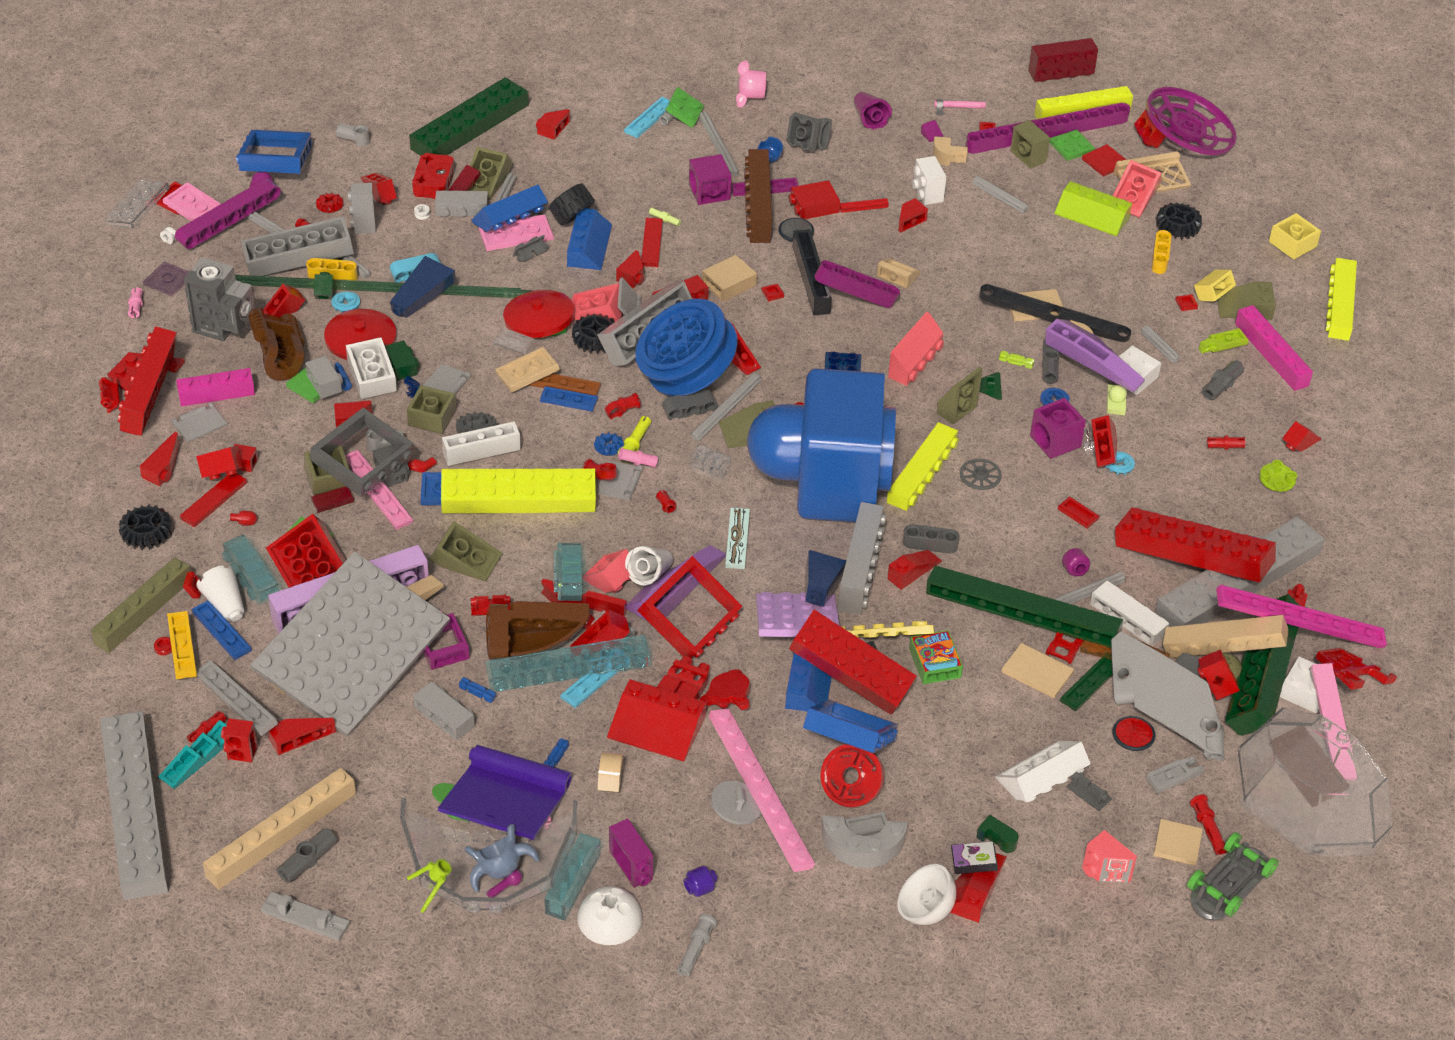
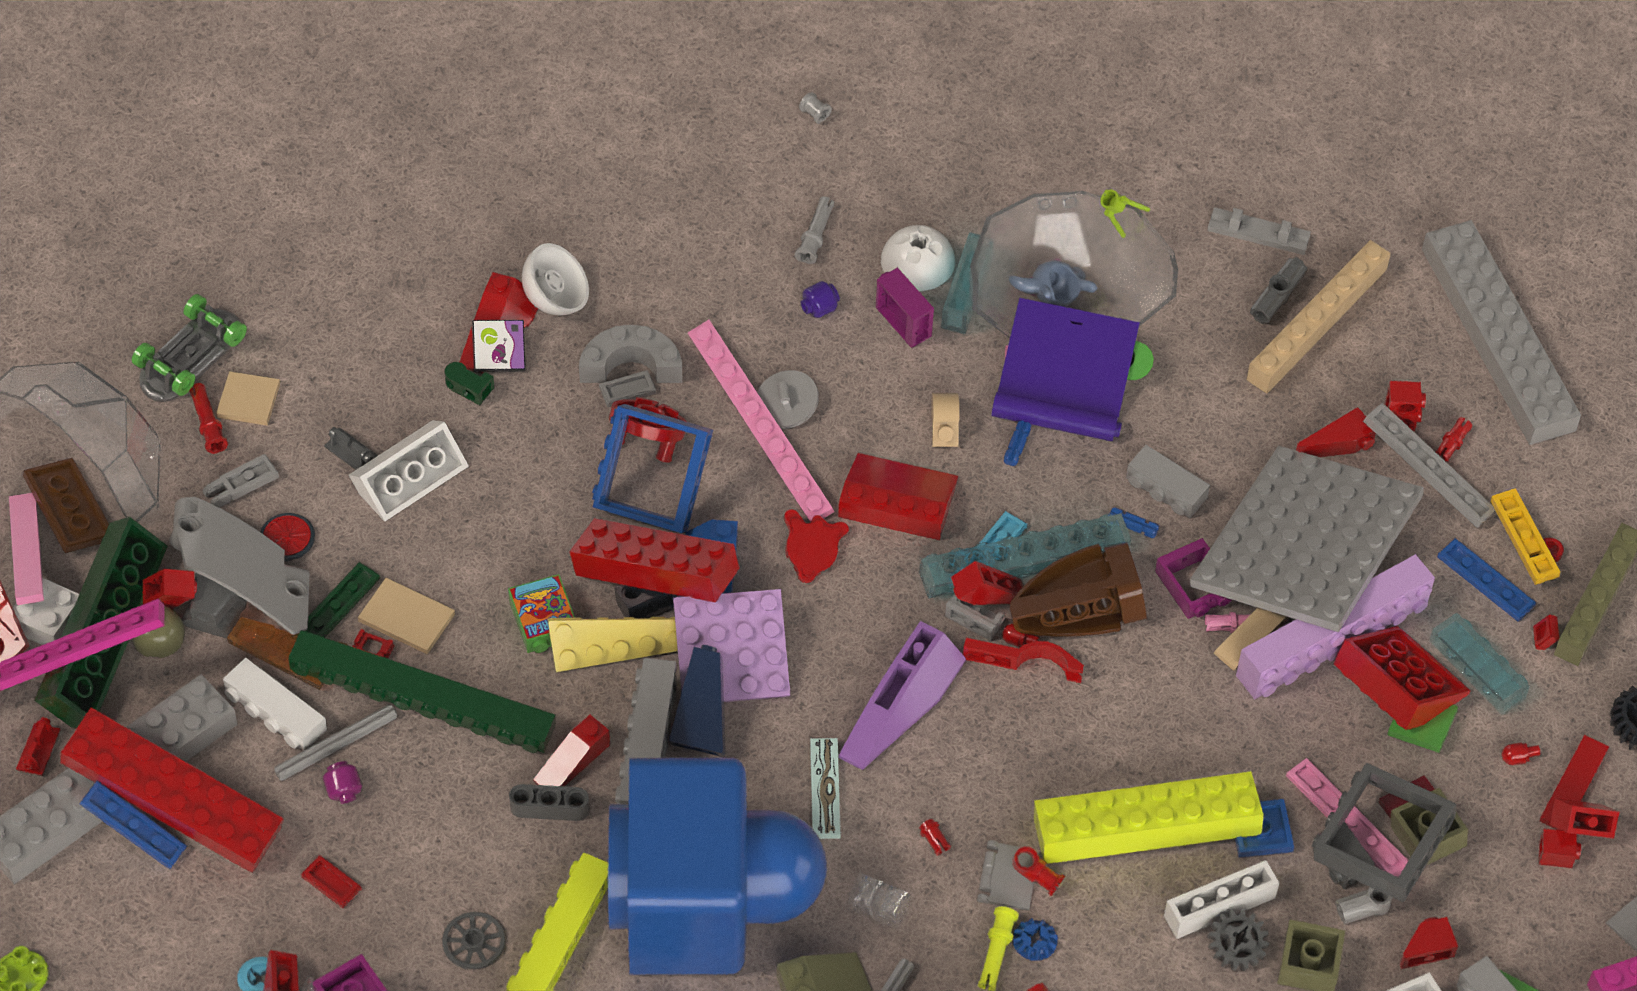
camera: 175 degrees right, 10 degrees up
(194, 757) = (1450, 404): teal slope -> none
(222, 592) = (1502, 616): white cone -> none
(421, 466) = (1299, 867): red arm -> none
(465, 553) = (1199, 716): olive slope -> none
(480, 604) = (1145, 645): red hinge -> none
(568, 571) = (1049, 681): clear light blue brick -> none
(609, 572) = (995, 706): coral slope -> none
(637, 457) = (986, 902): bright pink pin -> none
(647, 564) = (937, 704): white cone -> none
(669, 631) = (900, 653): red window -> none
(686, 678) = (870, 546): red hips -> none
(1108, 860) = (338, 345): coral slope -> none
(1226, 635) = (168, 645): tan brick -> none

